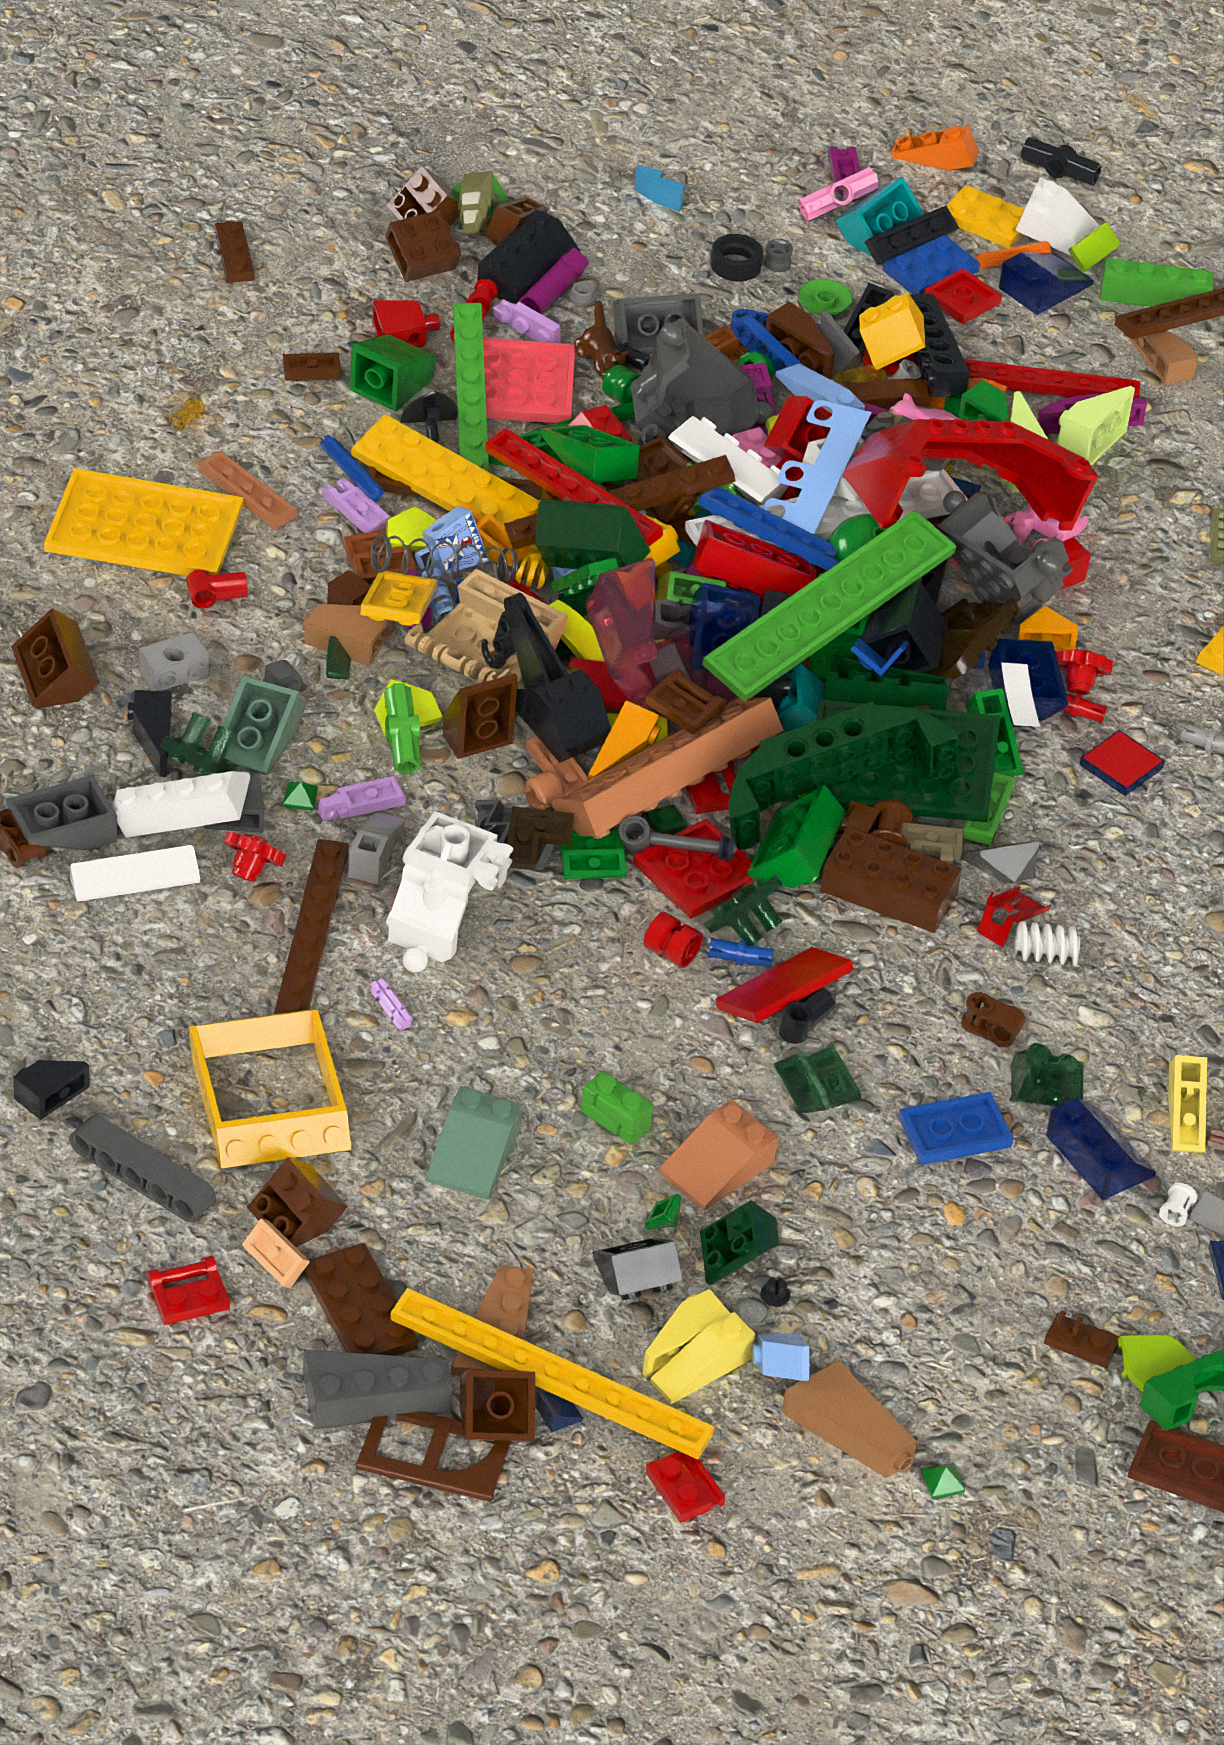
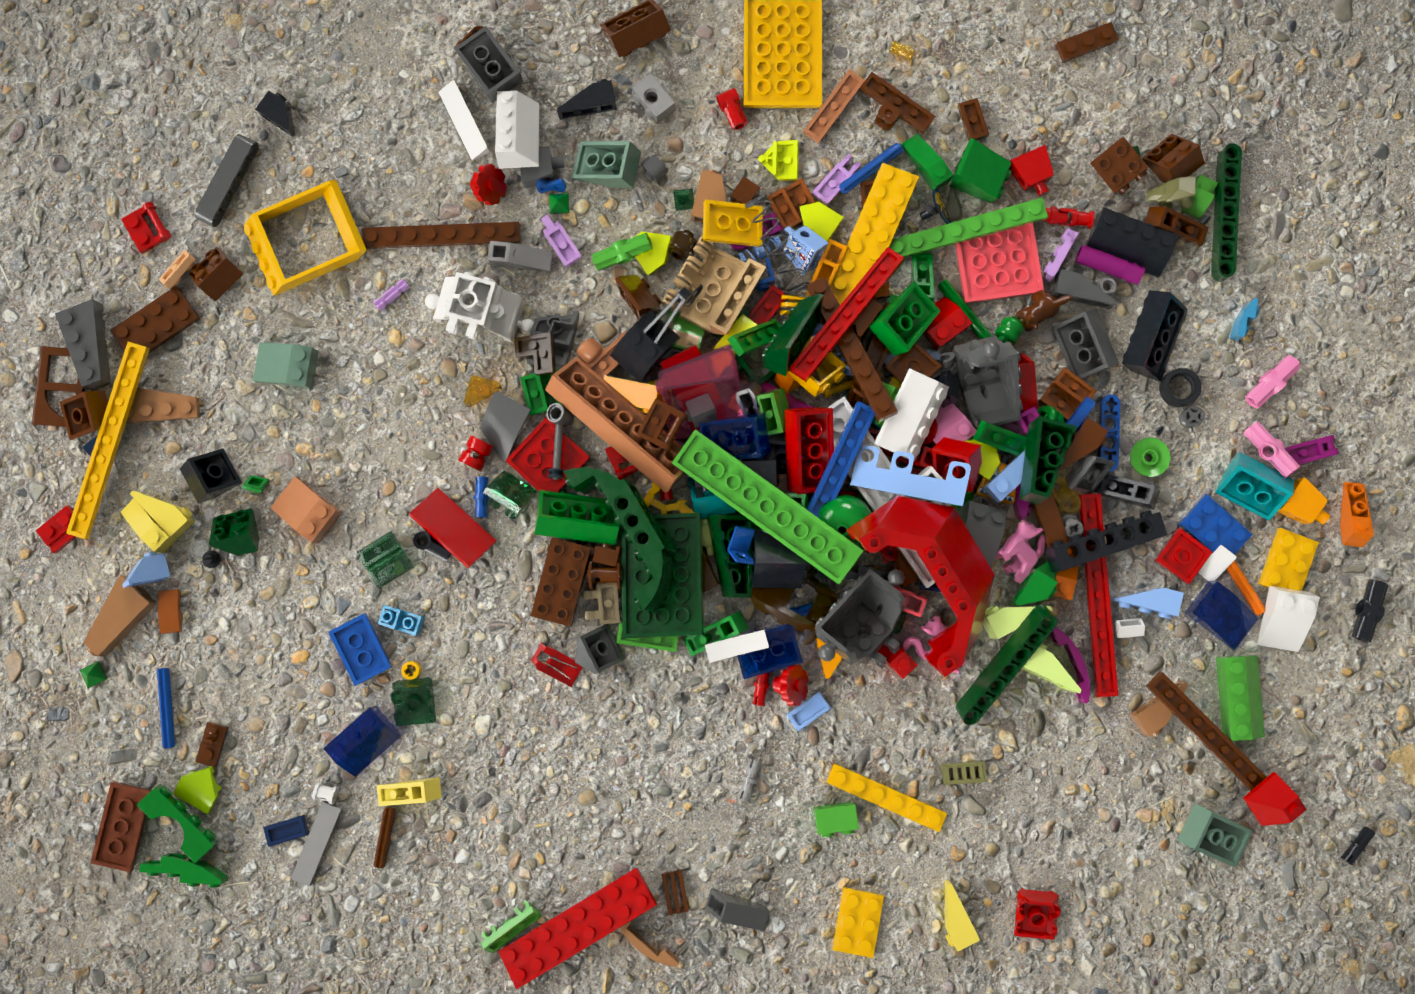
camera: 90 degrees right, 40 degrees up
(188, 747) = (564, 132): clear green plate -> none
(267, 430) = (895, 105): none -> reddish brown plate
(274, 790) = (544, 186): none -> blue piece
(309, 555) = (782, 160): none -> neon yellow slope
(359, 414) = (927, 162): none -> green slope
(409, 667) = (682, 244): none -> dark brown head
(516, 175) = (1231, 204): none -> dark green beam
(573, 924) = (480, 389): none -> clear yellow slope
(578, 312) = (1081, 289): none -> dark grey slope
(617, 1107) = (328, 443): bright green brick -> none
(632, 900) = (503, 423): none -> dark grey slope
(635, 358) = (1046, 332): black pin -> none
(658, 263) = (1155, 335): none -> black slope
(666, 820) = (586, 434): dark green plate -> none
(748, 181) = (1273, 381): none -> bright pink piece
(770, 401) = (1000, 438): none -> green plate
(816, 356) = (1044, 455): none -> dark green wedge
(862, 1354) = (169, 612): none -> dark orange slope
(892, 330) = (1103, 510): yellow slope -> none
(911, 234) = (1242, 510): black tile -> none
(917, 1076) = (401, 620): none -> dark azure slope
(922, 181) = (1305, 504): none -> light orange torso
(974, 264) = (1217, 563): none -> white sticker
(994, 1020) = (454, 665): reddish brown piece -> none
(1004, 1075) = (405, 667): none -> yellow bush
(1013, 1388) = (165, 707): none -> blue axle
(1019, 326) = (1159, 600): none -> light blue slope
(1047, 942) = (527, 688): white piece -> none
(1051, 354) = (1129, 628): none -> white piece
(1071, 432) = (1006, 664): none -> dark green beam
(1094, 246) = (1266, 647): lime slope -> none
(1122, 762) = (716, 721): red tile -> none
(1125, 675) = (808, 711): none -> light blue tile

